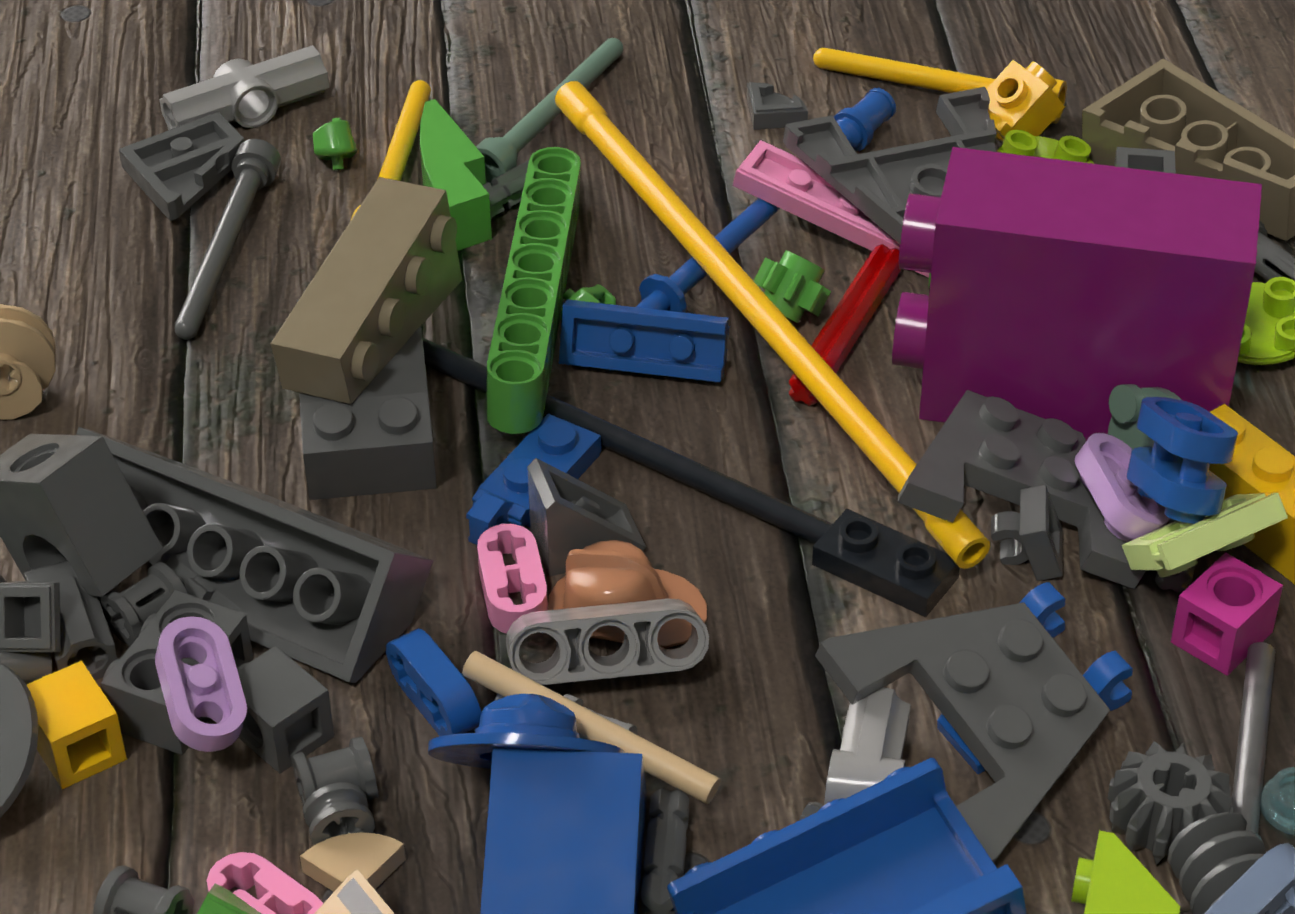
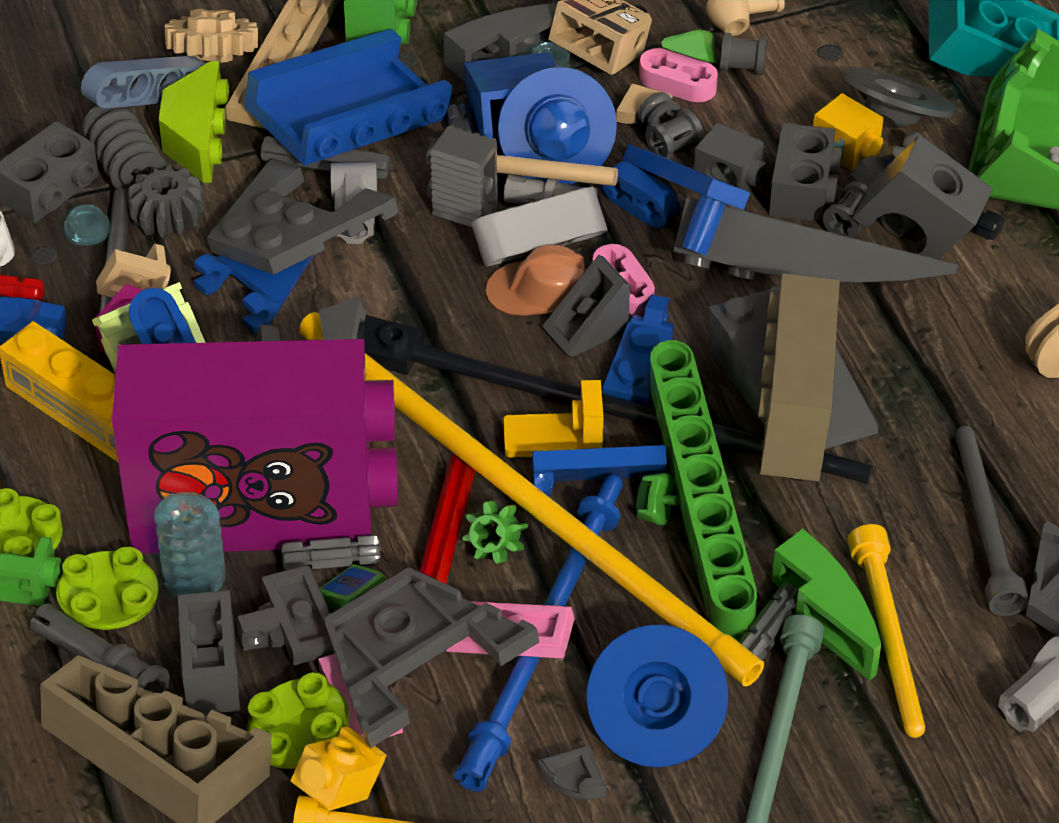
camera: 165 degrees right, 5 degrees up
(202, 689) = (768, 119): lavender plate -> none
(334, 142) = (949, 627): bright green piece -> none
(375, 610) = (711, 203): none -> blue piece
(666, 123) = (657, 696): none -> blue hat
(669, 397) = (558, 431): none -> yellow bracket
(701, 700) = (462, 175): none -> dark grey brick
(1219, 667) = (134, 270): none -> tan bracket

